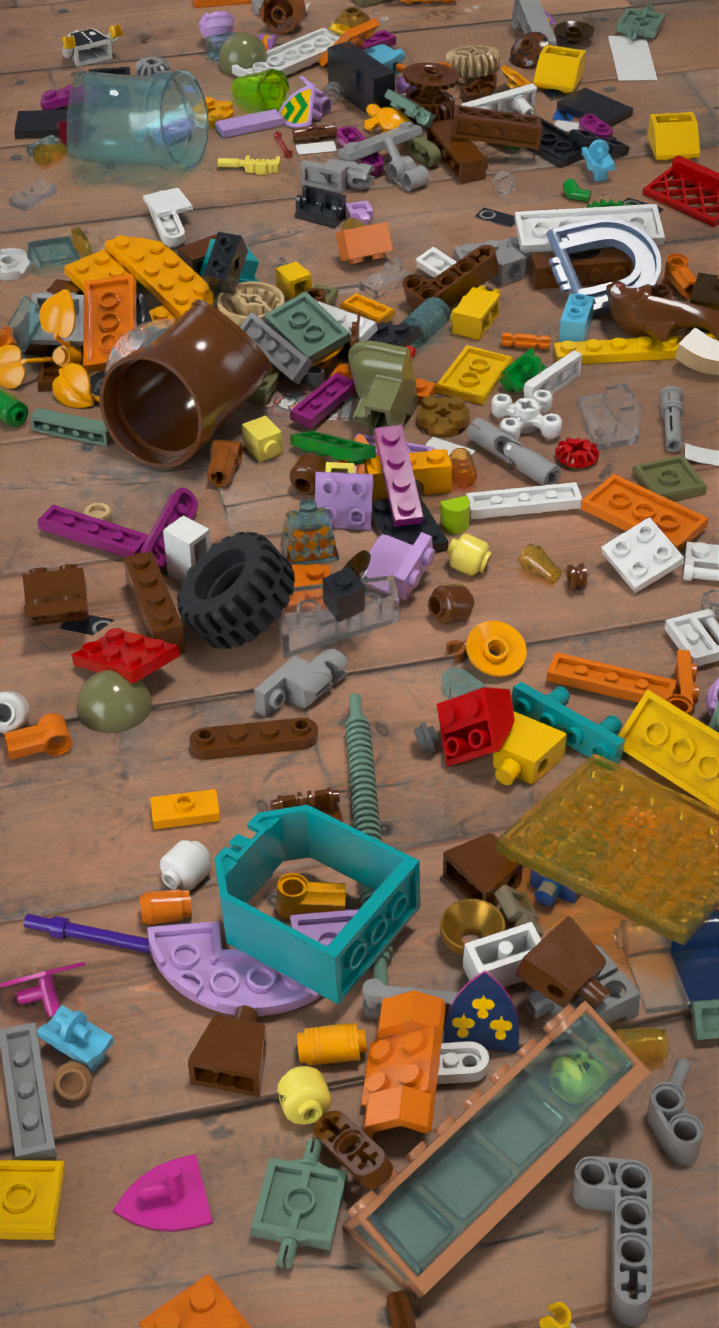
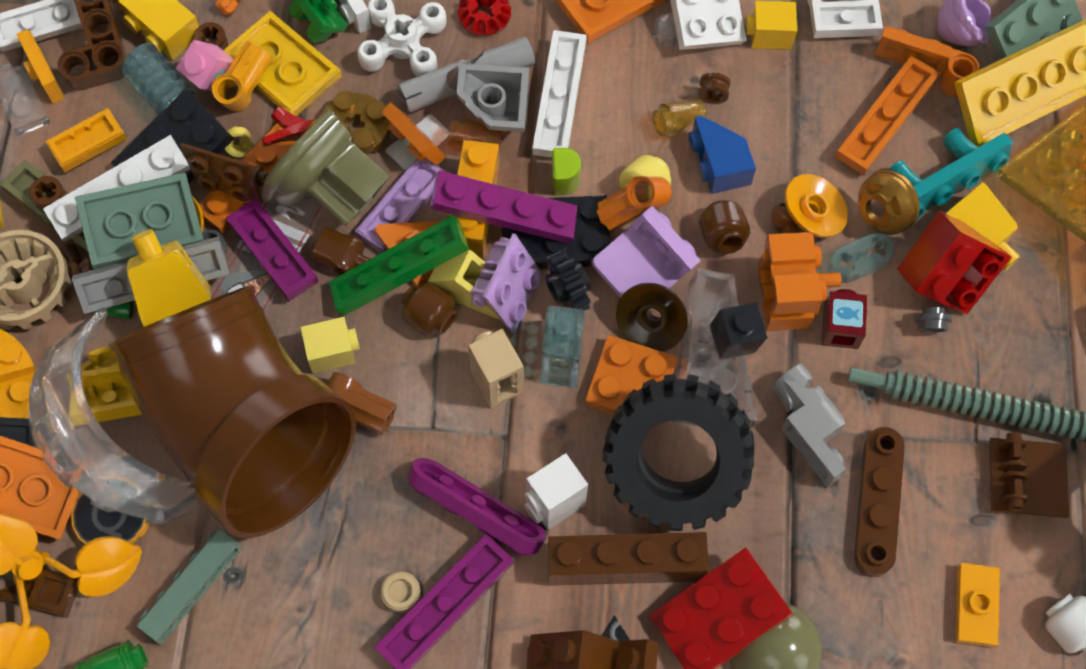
camera: 75 degrees left, 25 degrees up
(269, 502) = (496, 367): none -> tan brick
(274, 340) = (164, 279): none -> yellow torso
(337, 424) = (338, 251): none -> reddish brown piece
(358, 527) = (567, 281): none -> black gear
(401, 684) = (844, 319): none -> dark red brick
(412, 636) = (790, 281): none -> orange brick
(420, 267) = (38, 66): none -> light orange plate
(440, 353) = (243, 72): none -> light orange piece
(444, 537) = (632, 201): none -> orange piece
(445, 433) = (404, 127): none -> orange plate
(446, 336) = (204, 63): none -> bright pink brick
(475, 338) = (212, 29): none -> reddish brown bush
(494, 461) = (495, 94): none -> light grey slope
(512, 592) = (722, 155): none -> blue slope
(514, 673) = (897, 198): none -> pearl gold piece
(656, 597) = (772, 25): none -> yellow brick

